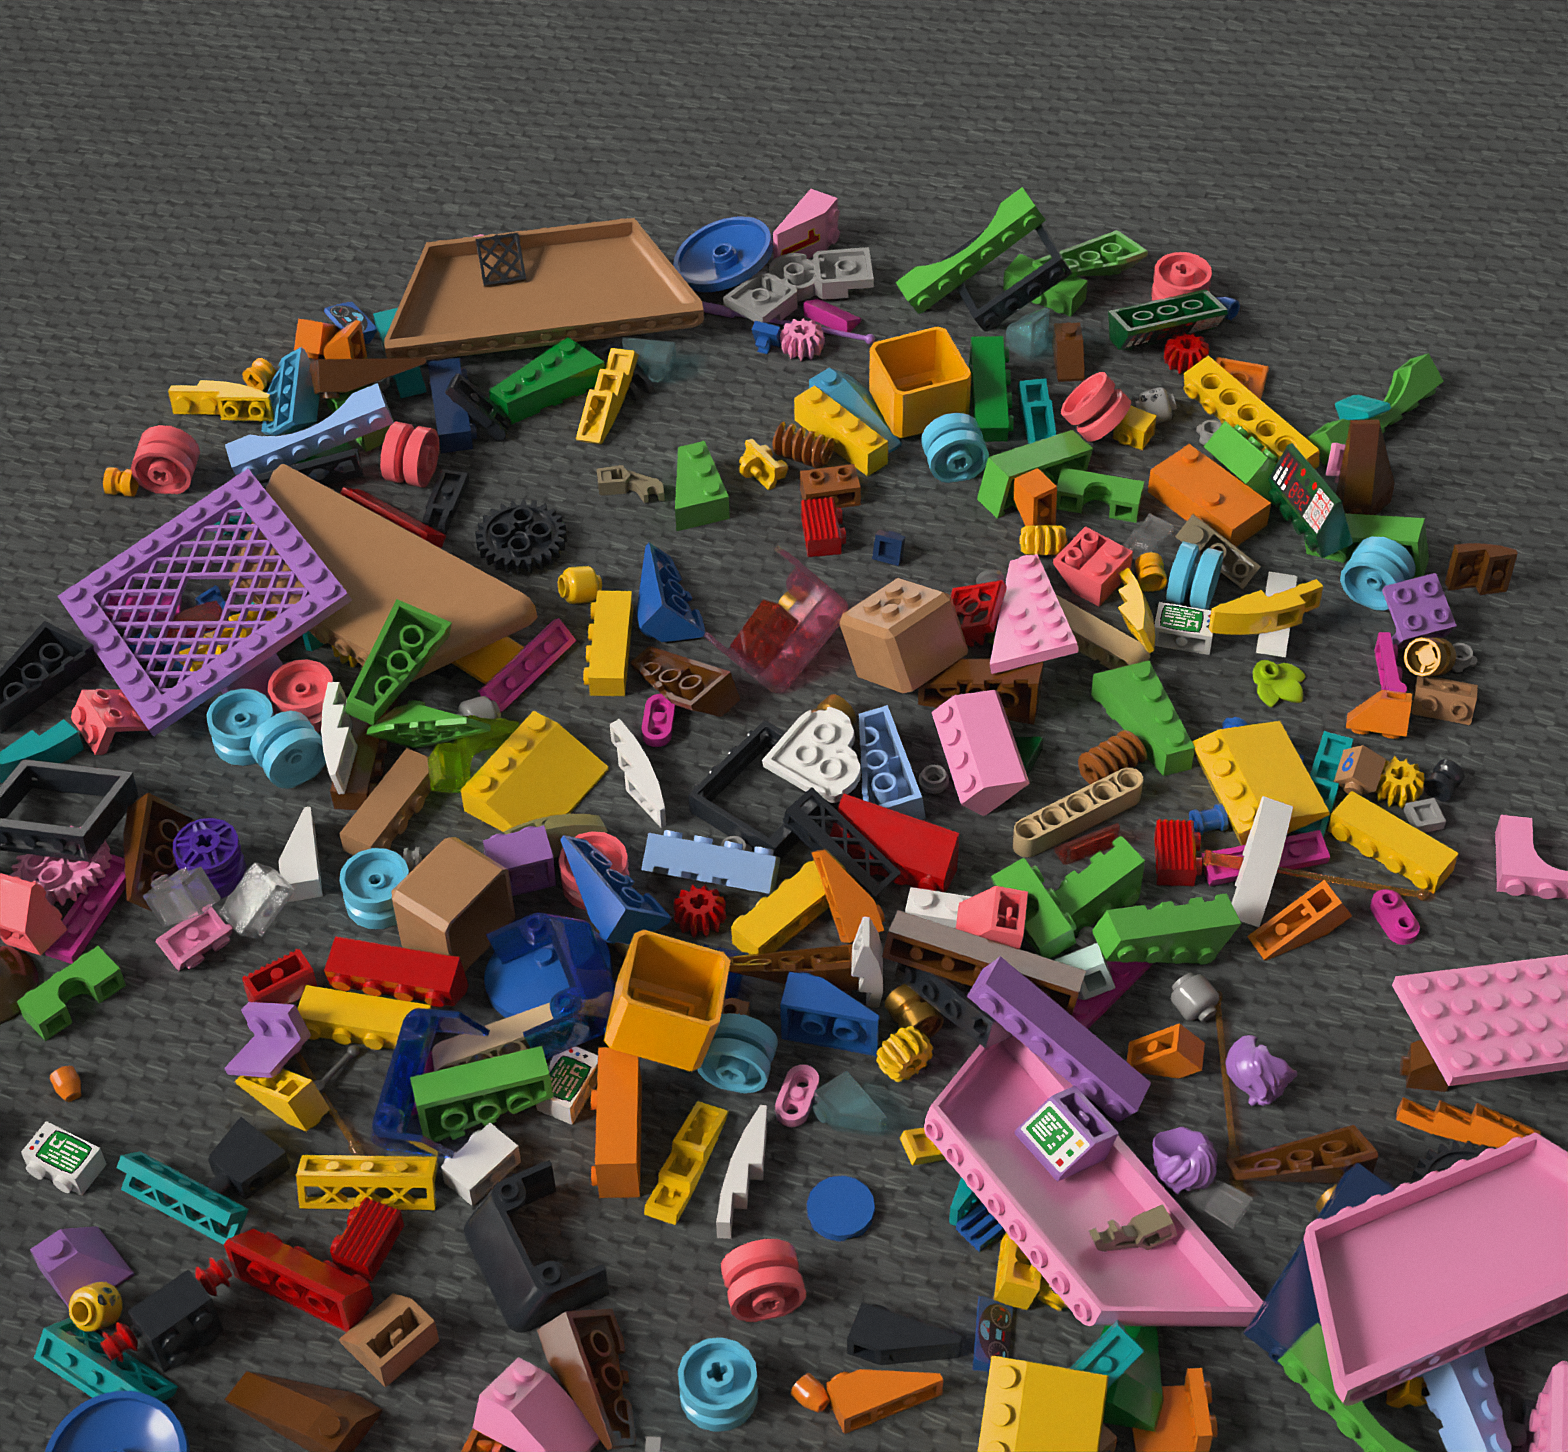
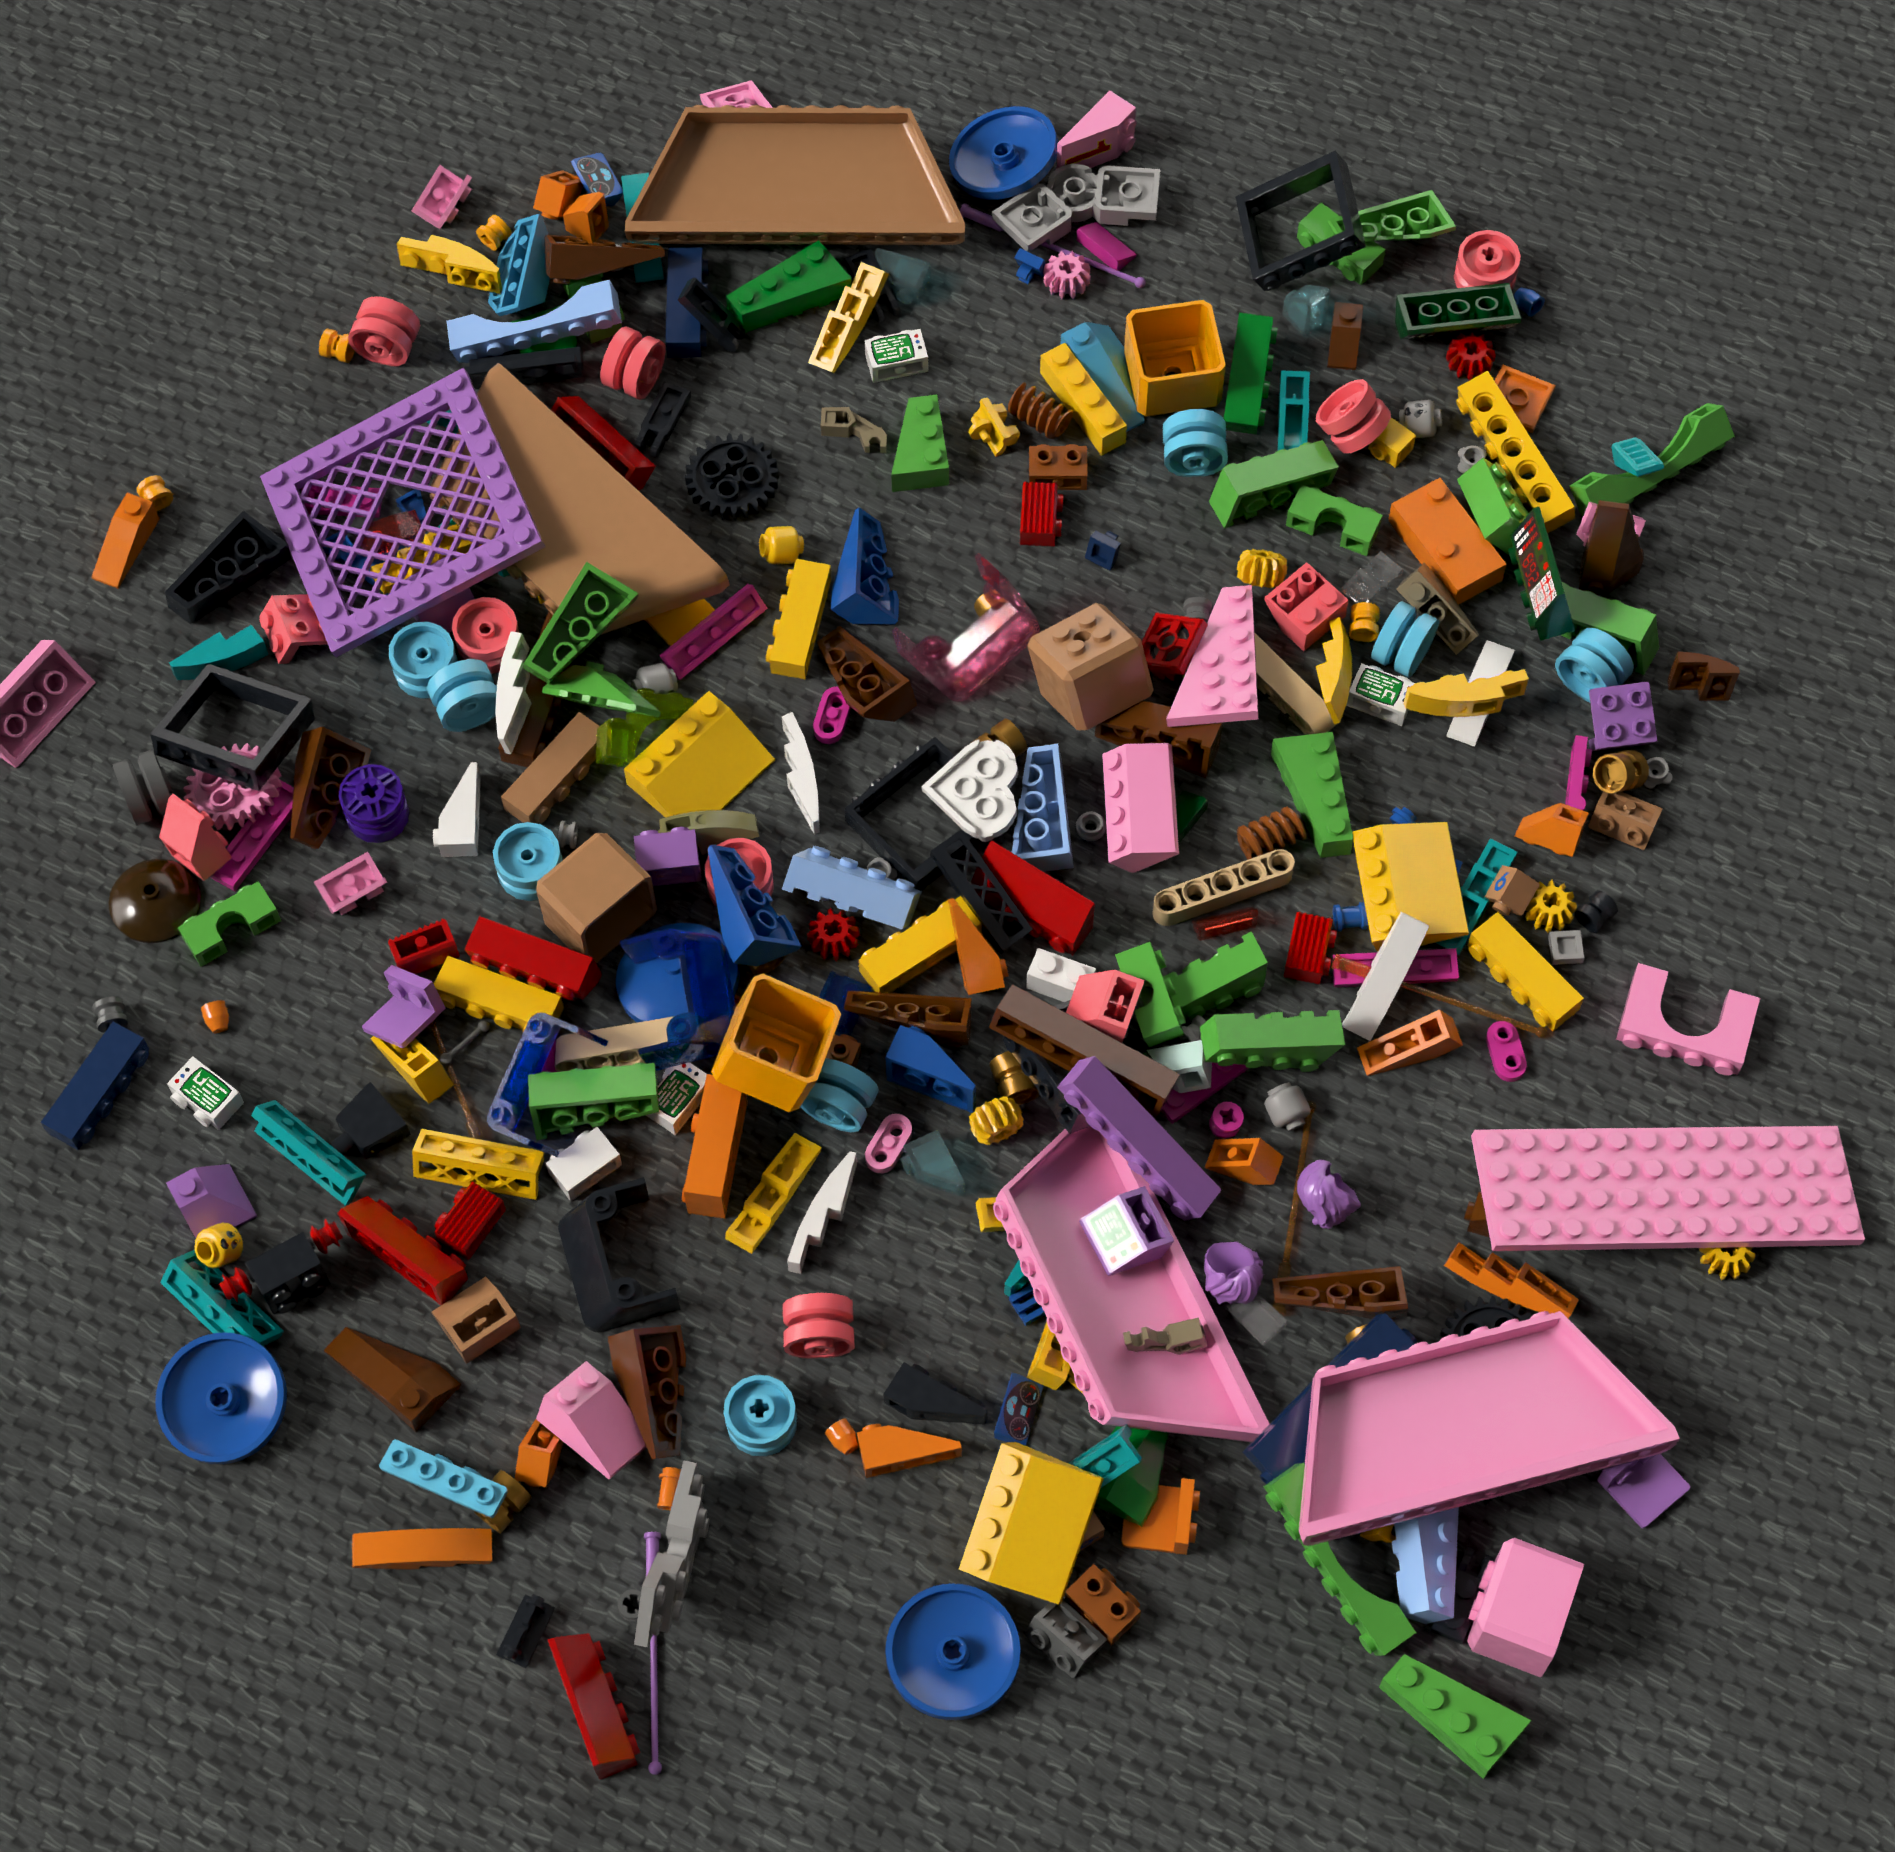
camera: 10 degrees right, 15 degrees up
(181, 896) = (342, 842): clear brick -> none
(205, 353) = (440, 197): none -> bright pink bracket
(256, 901) = (412, 857): clear brick -> none
(504, 279) = (762, 160): black window -> none
(658, 420) = (896, 355): none -> brick
(764, 633) = (952, 640): clear red brick -> none
(840, 1208) = (906, 1262): blue tile -> none
(868, 962) = (975, 1029): white slope -> none
(932, 282) = (1314, 176): bright green arch -> none
(1036, 498) = (1264, 521): orange slope -> none
(1136, 1019) = (1223, 1126): none -> dark pink wheel
(1281, 682) = (1464, 775): lime plate -> none

